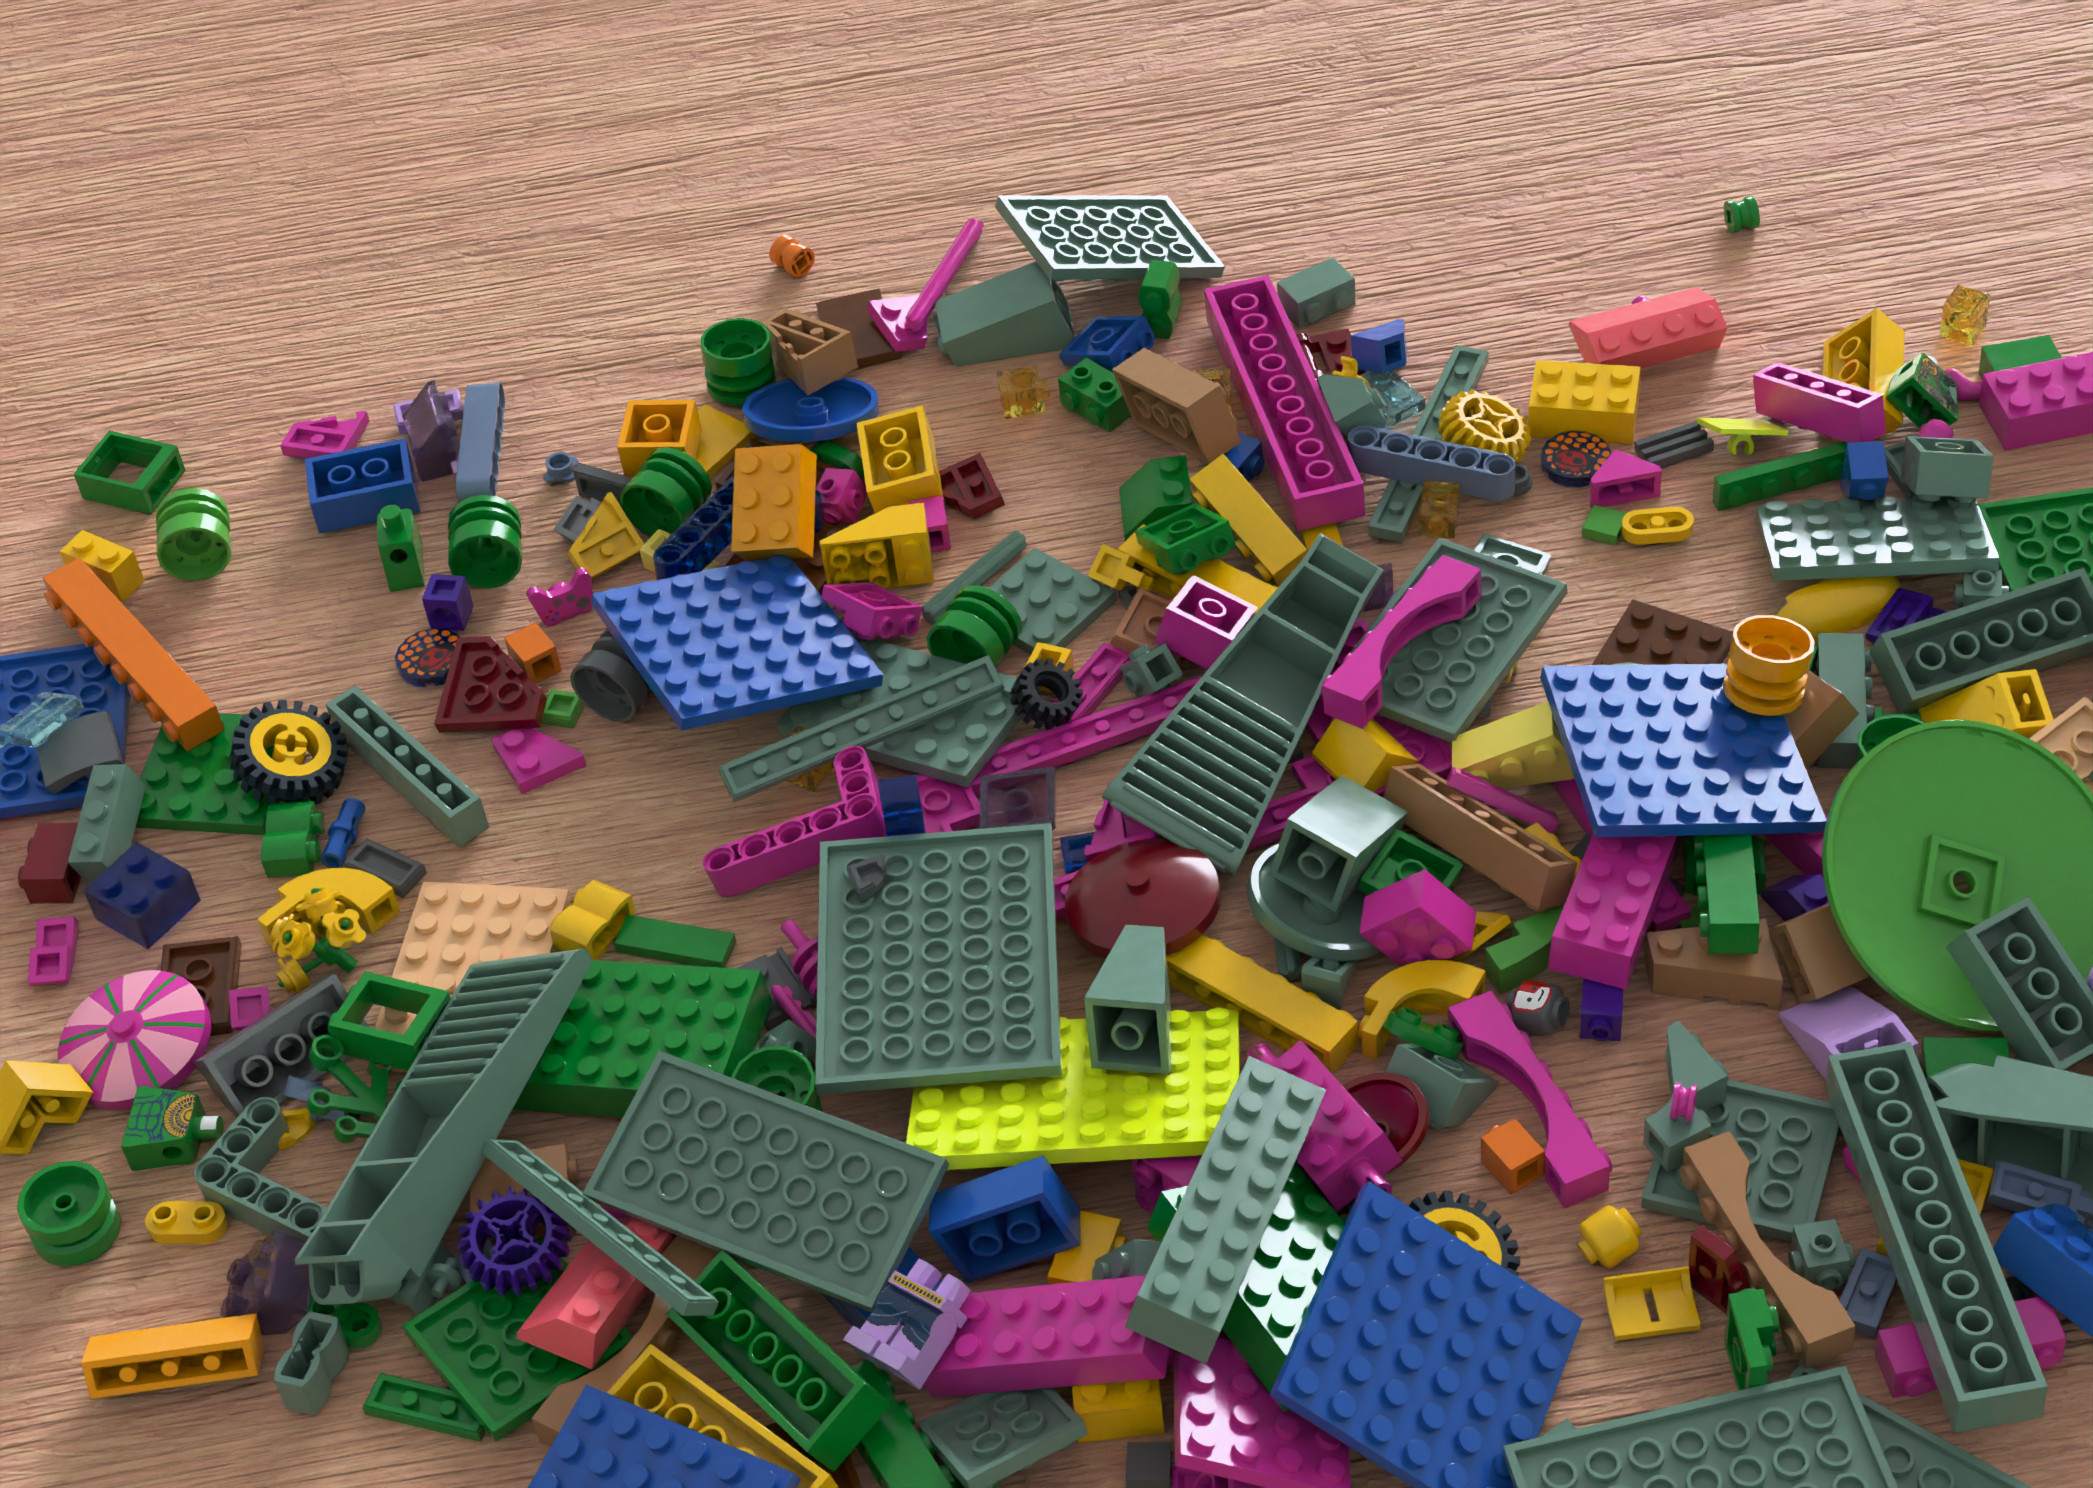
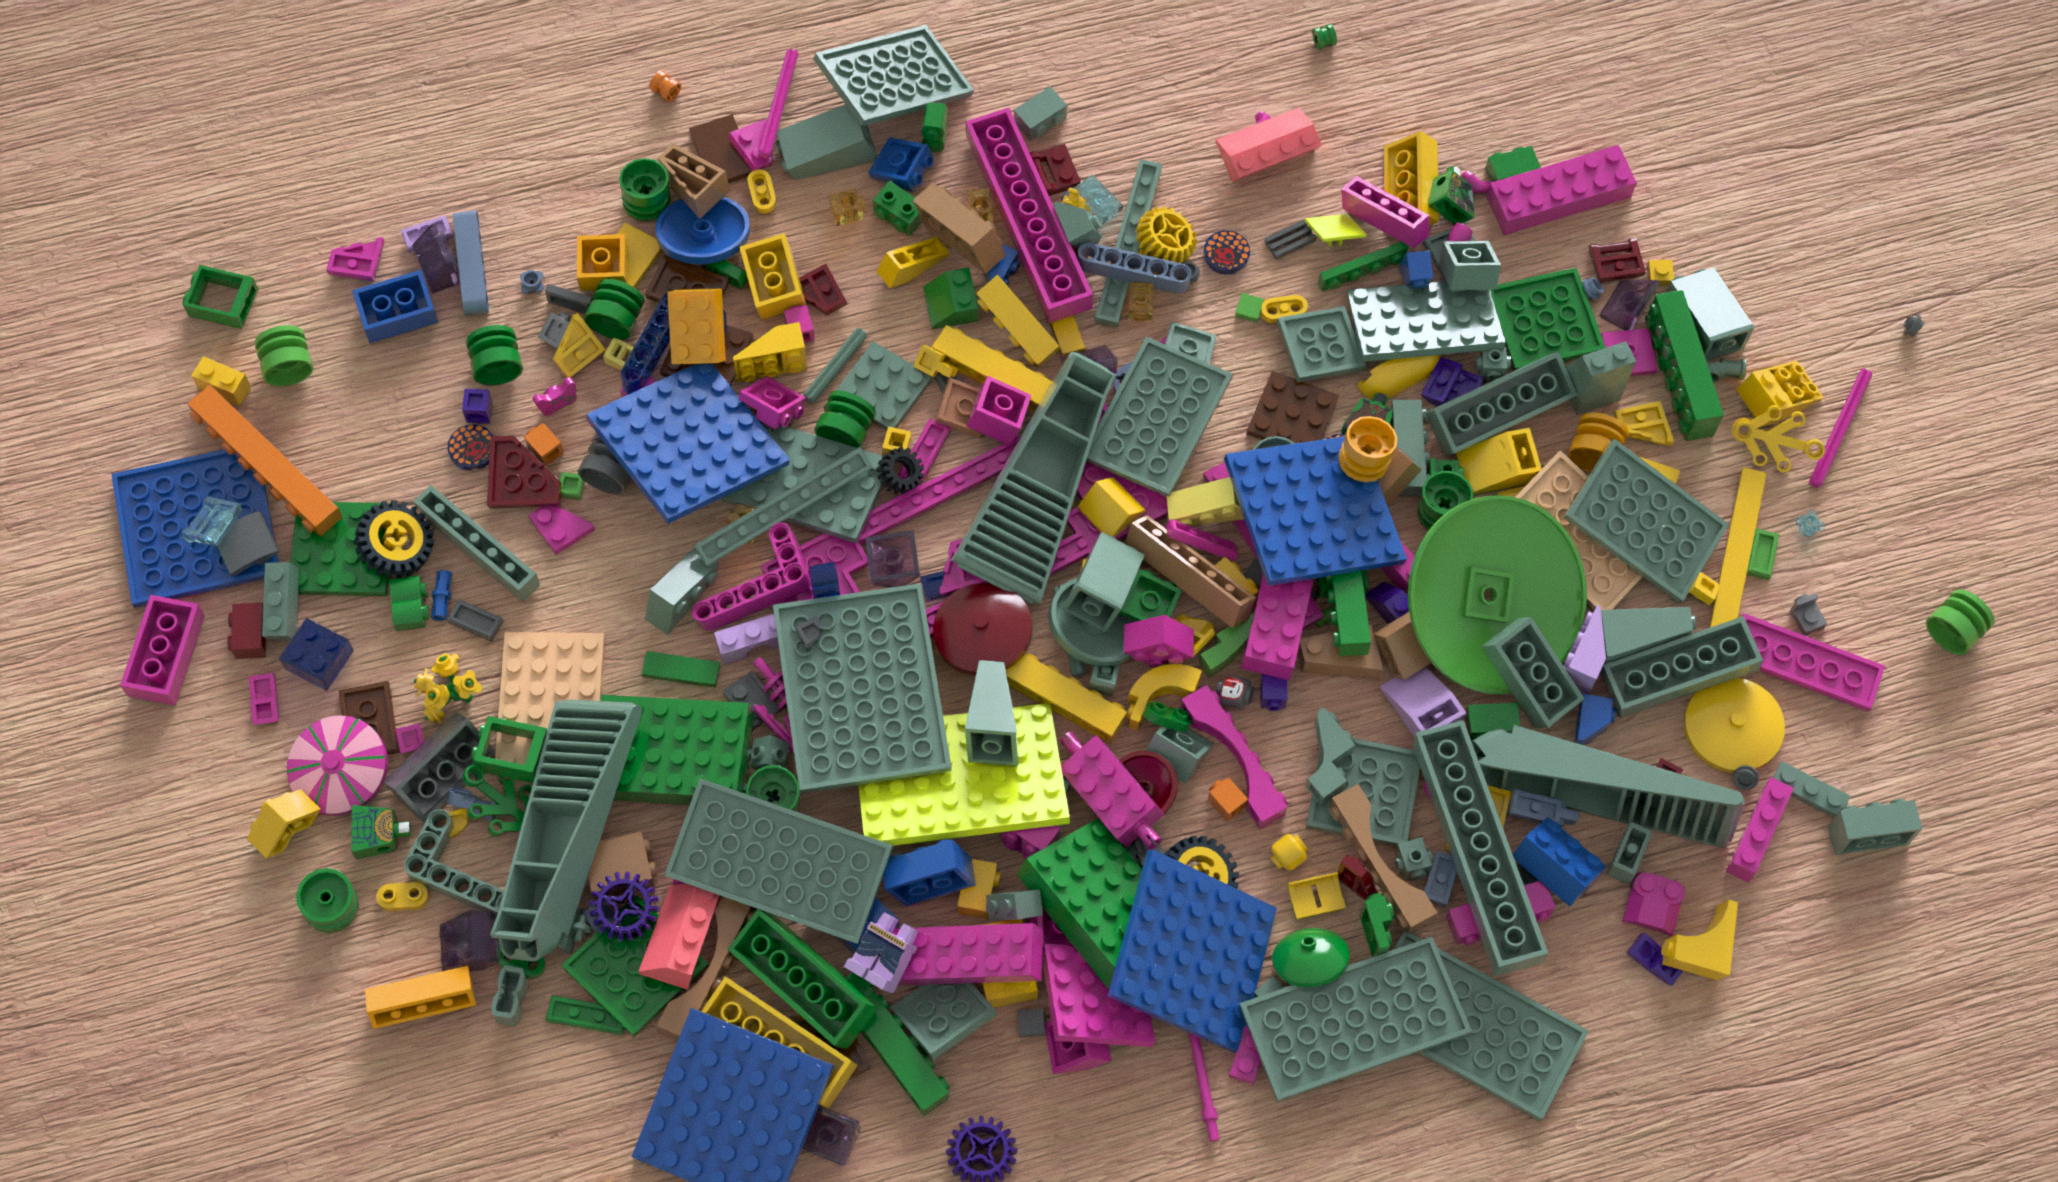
camera: 15 degrees left, 20 degrees up
(358, 889) = (469, 648): yellow arch -> none
(399, 531) = (434, 356): green torso -> none
(592, 919) = (624, 658): yellow brick -> none
(601, 1228) = (680, 900): sand green tile -> none
(682, 834) = (679, 591): none -> sand green wedge
(766, 900) = (740, 639): none -> lavender arch
(842, 495) = (736, 304): dark pink brick -> none
(904, 373) = (761, 193): none -> yellow plate
(1102, 455) = (910, 261): none -> yellow slope
(1150, 670) = (965, 444): sand green brick -> none
(1187, 538) = (979, 341): green plate -> none
(1225, 1210) = (1070, 874): sand green brick -> none
(1380, 347) = (1091, 166): blue slope -> none
(1438, 597) = (1153, 391): dark pink arch -> none
(1584, 398) = (1230, 206): yellow brick -> none
(1624, 480) = (1260, 272): dark pink slope -> none
(1633, 1387) = (1310, 957): none -> green dish
(1683, 1102) = (1331, 769): dark pink bush -> none
(1711, 567) = (1321, 344): none -> sand green plate
(1964, 315) = (1476, 125): clear yellow brick -> none

